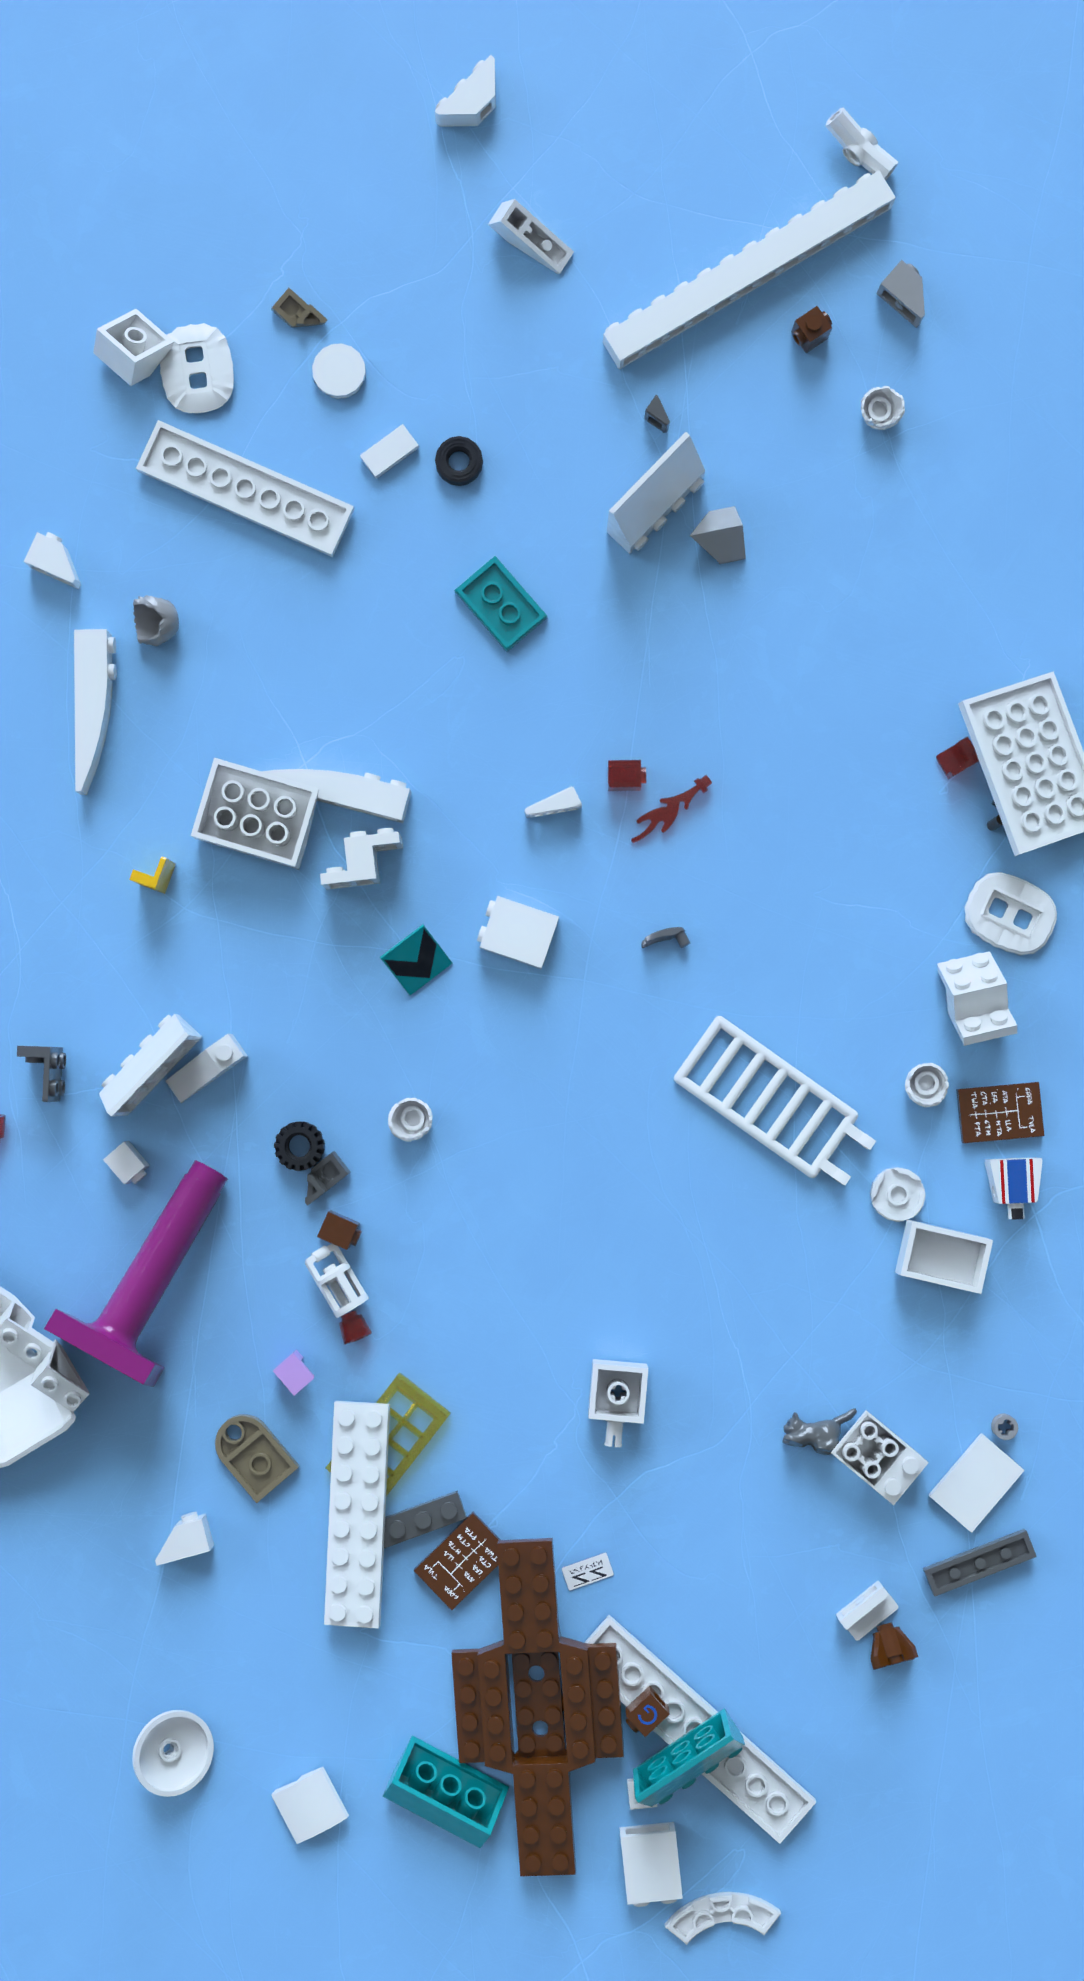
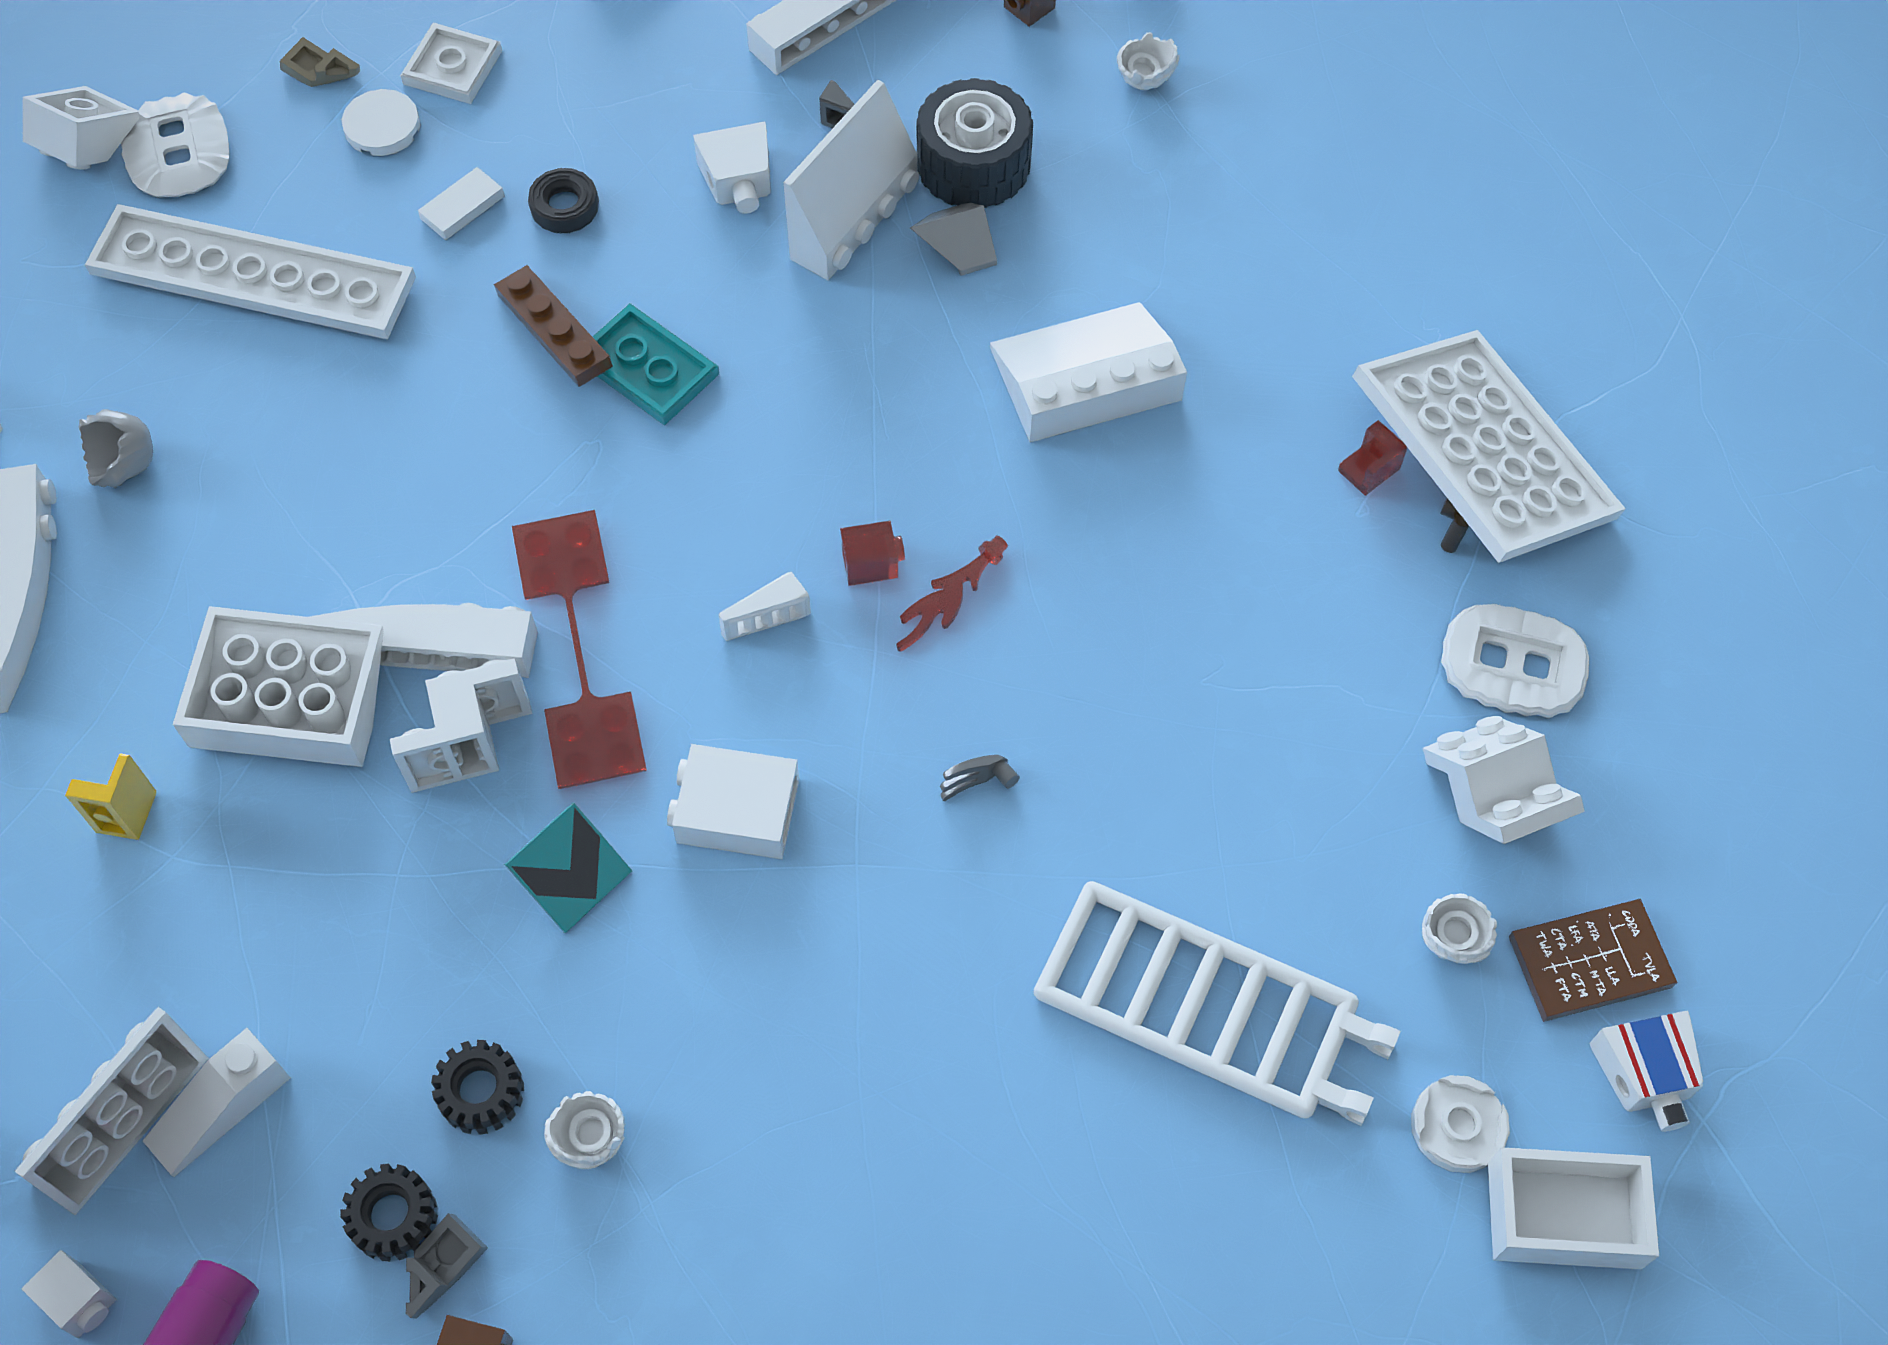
camera: 10 degrees left, 25 degrees down
(336, 1082) = (458, 1067): none -> black tyre
(391, 323) = (451, 63): none -> white tile
(436, 871) = (595, 734): none -> clear red hinge
(442, 567) = (553, 326): none -> reddish brown plate
(580, 453) = (735, 164): none -> white torso
(748, 444) = (974, 142): none -> black wheel
(789, 656) = (1089, 371): none -> white slope

